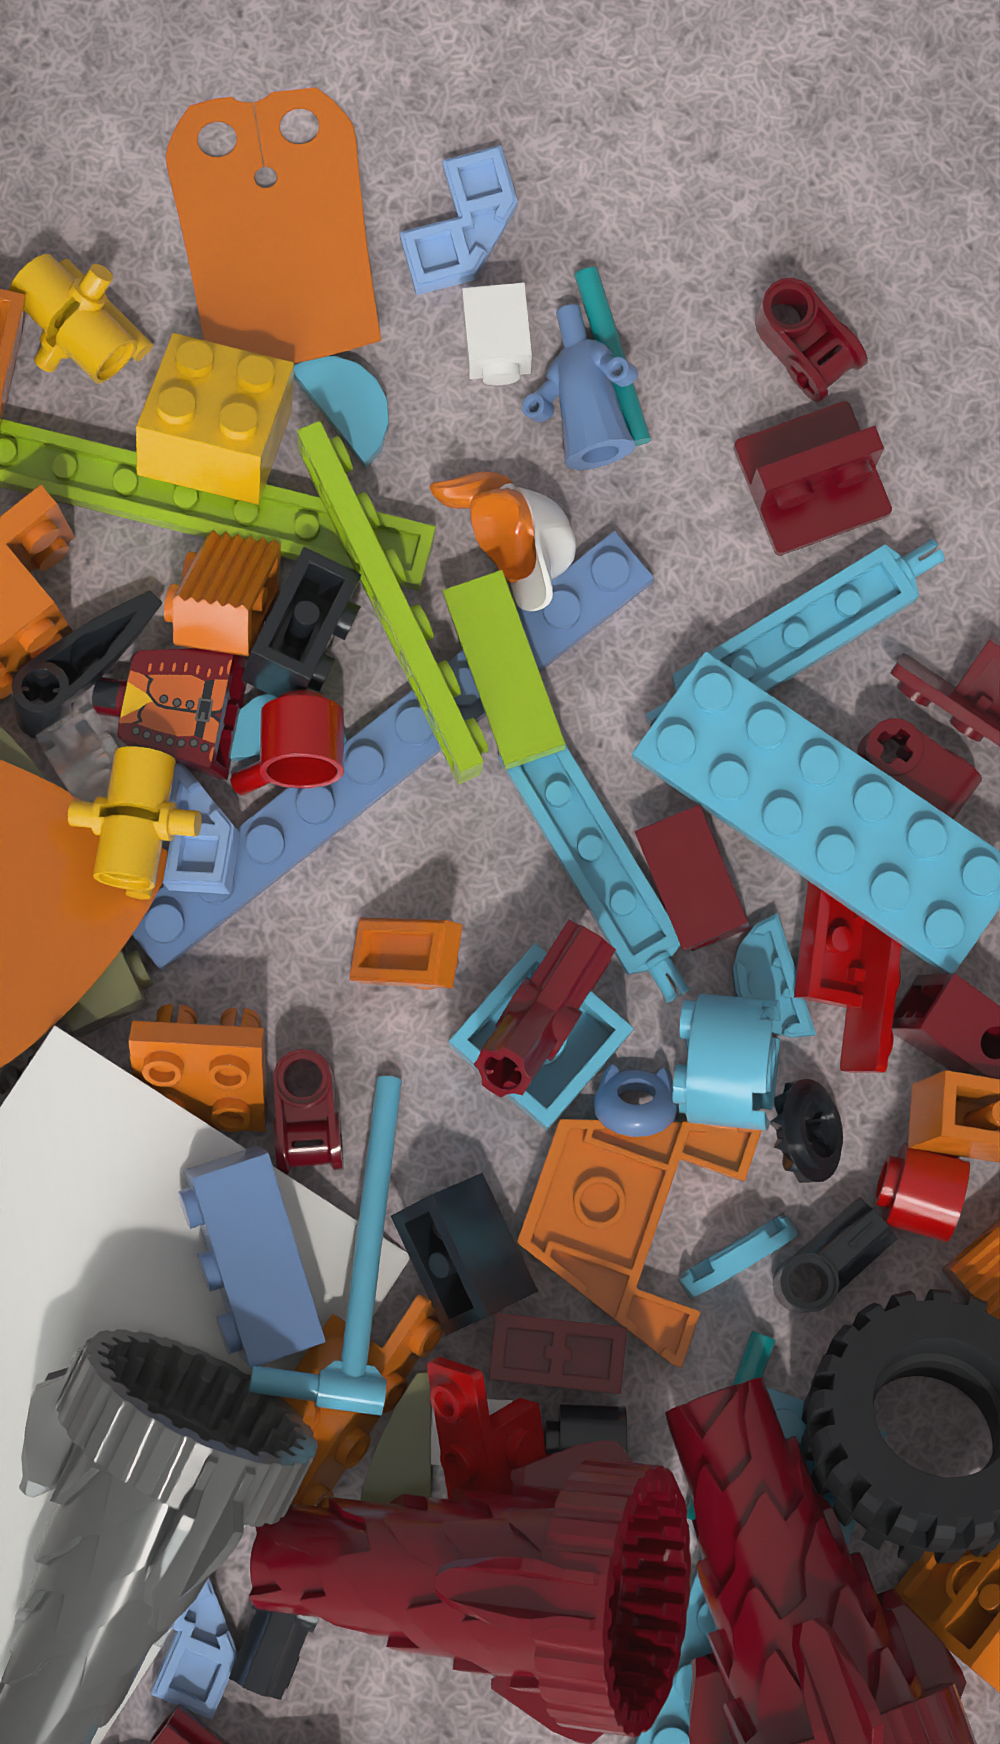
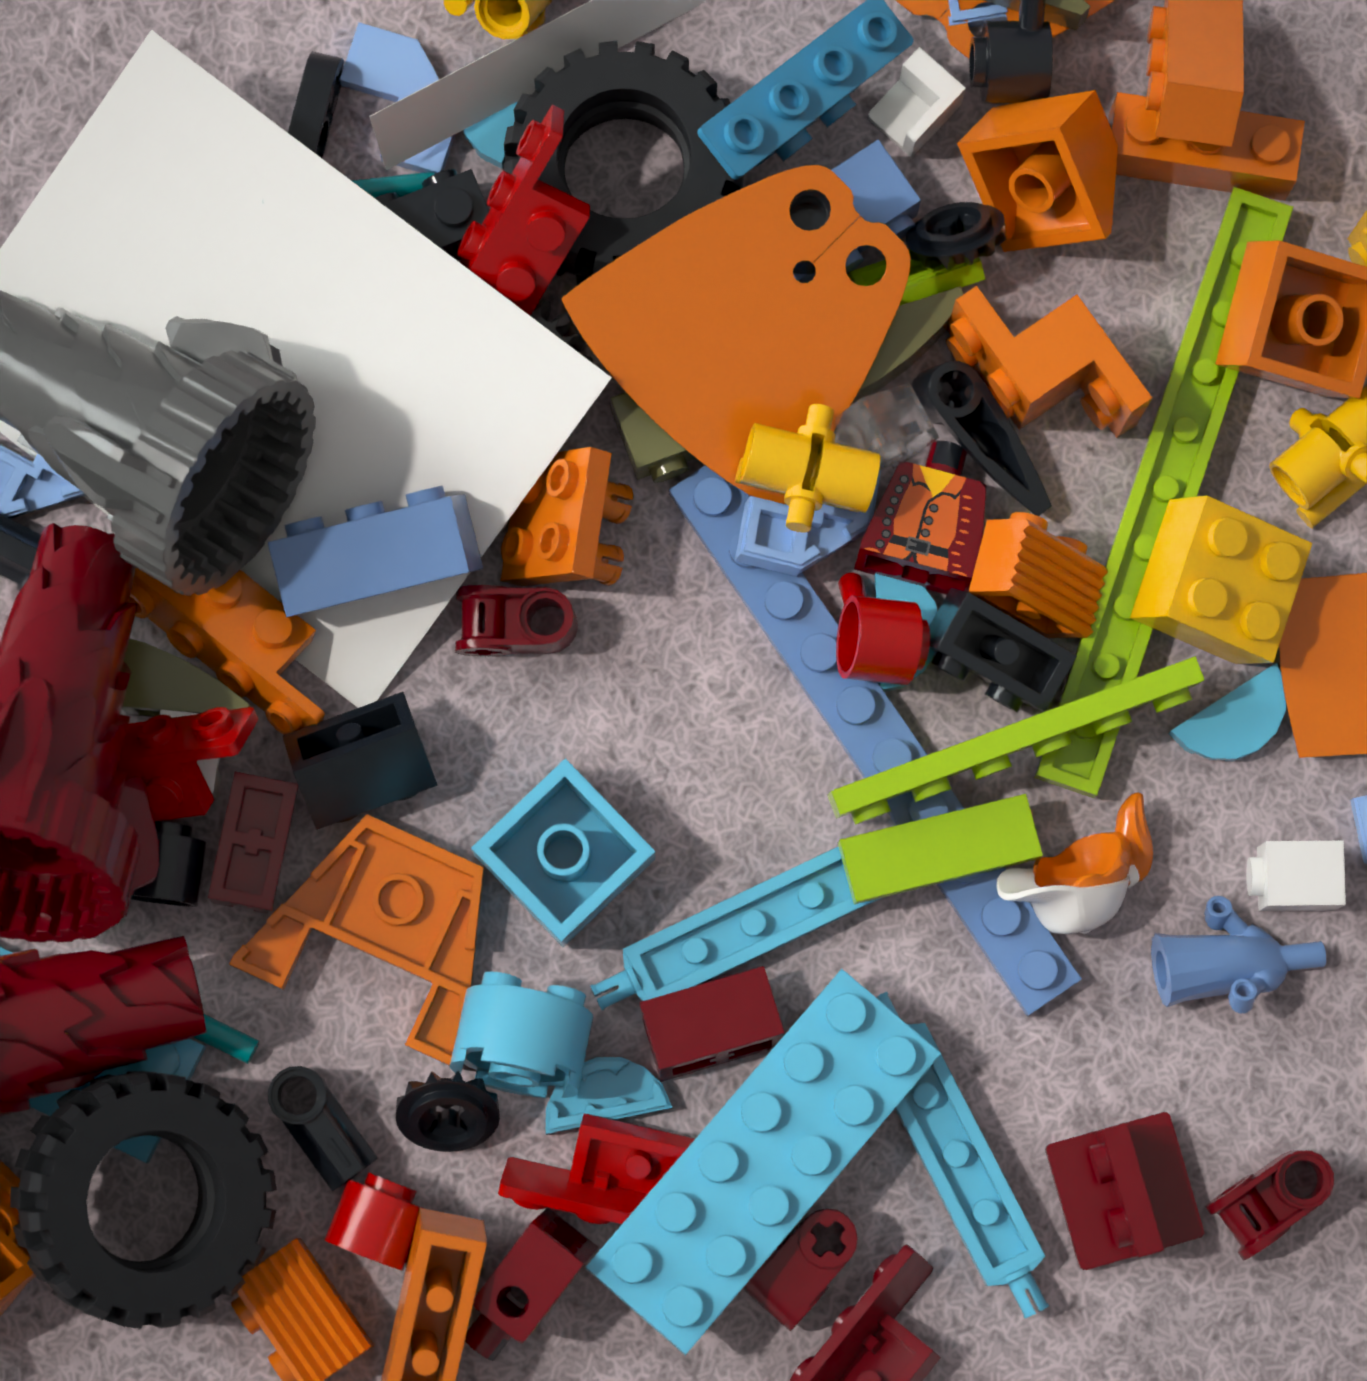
camera: 95 degrees right, 0 degrees up
(351, 1382) = (244, 637): medium azure bar -> none
(406, 952) = (660, 729): orange tile -> none
(543, 1011) = (580, 846): dark red piece -> none
(605, 331) = (1288, 993): teal bar -> none
(630, 1118) = (475, 935): medium blue piece -> none
(738, 1256) = (334, 1036): medium azure tile -> none

